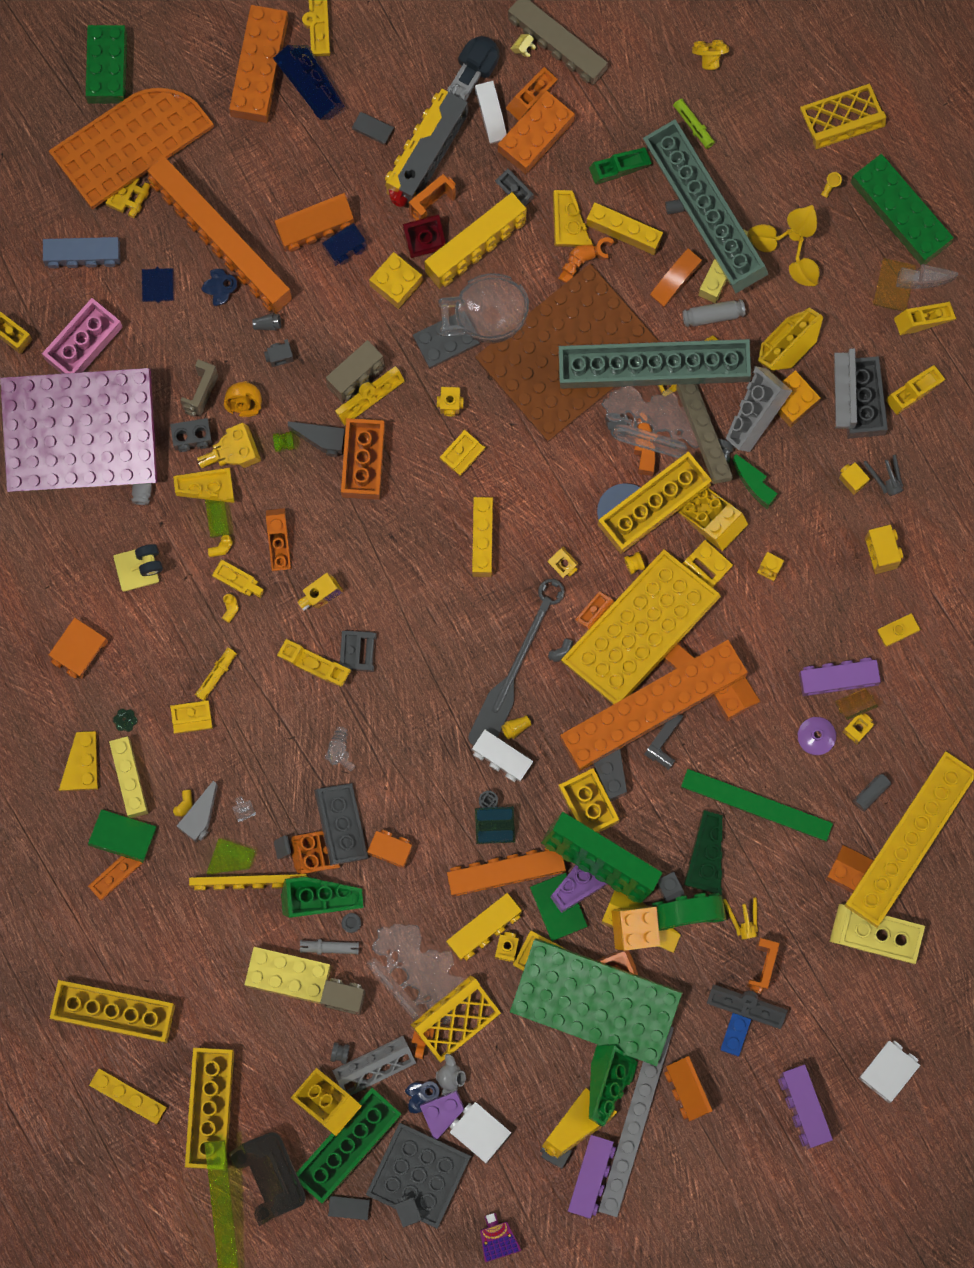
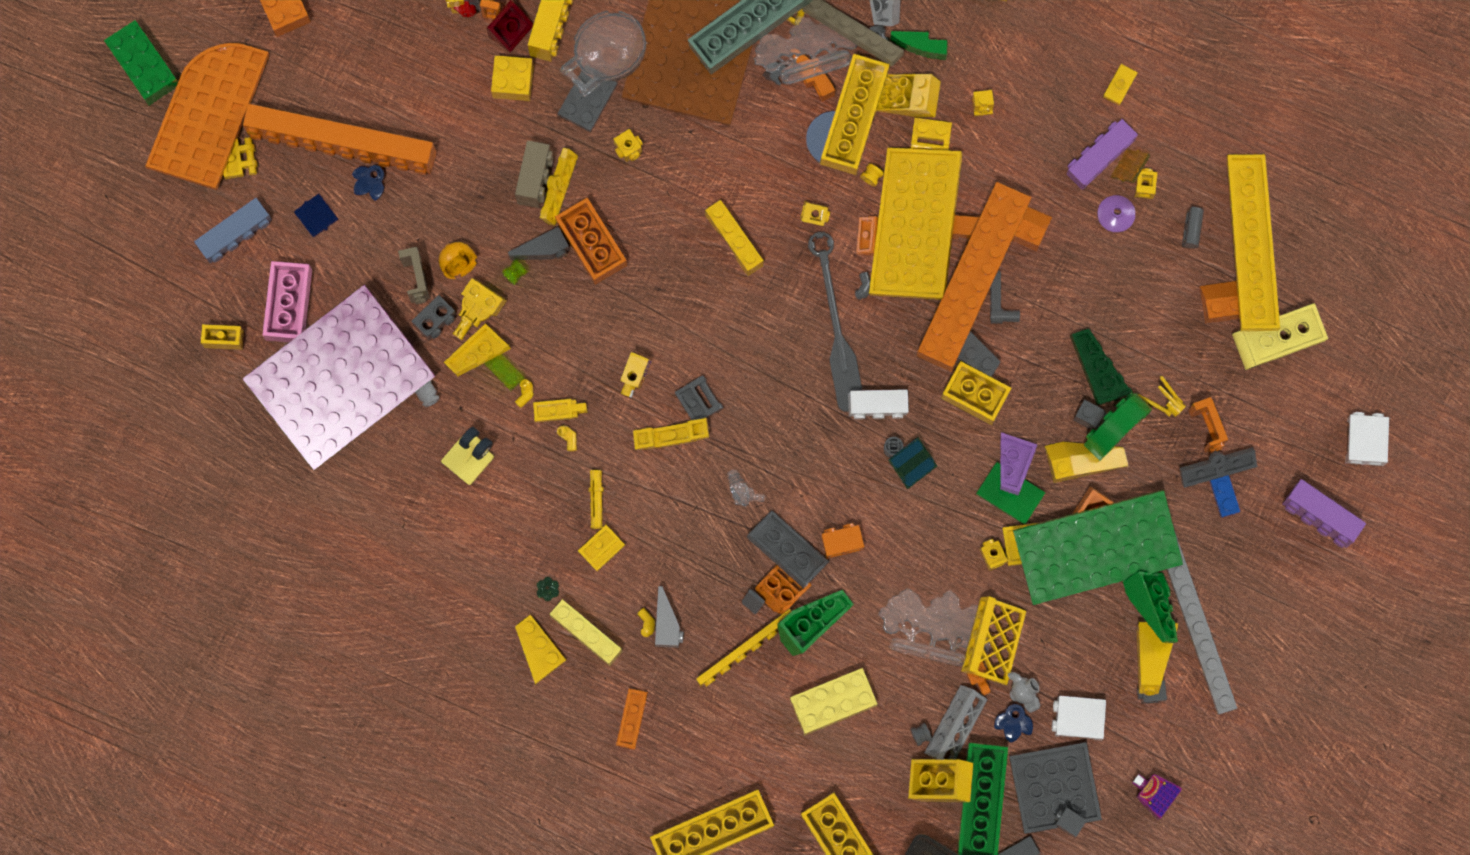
camera: 35 degrees left, 0 degrees up
(77, 648) = (466, 557): orange panel -> none
(122, 836) = (615, 684): green tile -> none
(230, 858) = (715, 640): clear neon green wing -> none
(243, 809) = (699, 593): clear tile -> none
(267, 322) = (431, 183): dark grey cone -> none
(278, 539) = (567, 354): orange slope -> none
(279, 354) = (459, 203): dark grey brick -> none
(314, 223) = (411, 76): orange slope -> none
(329, 947) = (850, 655): light grey pin -> none
(342, 996) = (892, 687): dark tan brick -> none
(344, 245) = (448, 78): clear blue brick -> none
(351, 923) = (853, 623): dark grey tile -> none
(442, 1112) = (1038, 723): medium lavender wing -> none
(462, 453) = (667, 181): yellow plate -> none
(483, 927) = (963, 551): yellow brick -> none
(504, 872) = (949, 494): orange brick -> none
(514, 727) = (871, 373): yellow cone -> none
(590, 1177) = (1193, 690): medium lavender brick -> none
(601, 858) = (1019, 428): green brick -> none
(635, 928) = (1088, 465): light orange brick -> none
(687, 1089) = (1221, 565): orange slope -> none
(756, 805) = (1109, 301): green tile -> none
(883, 549) = (1063, 27): yellow brick -> none

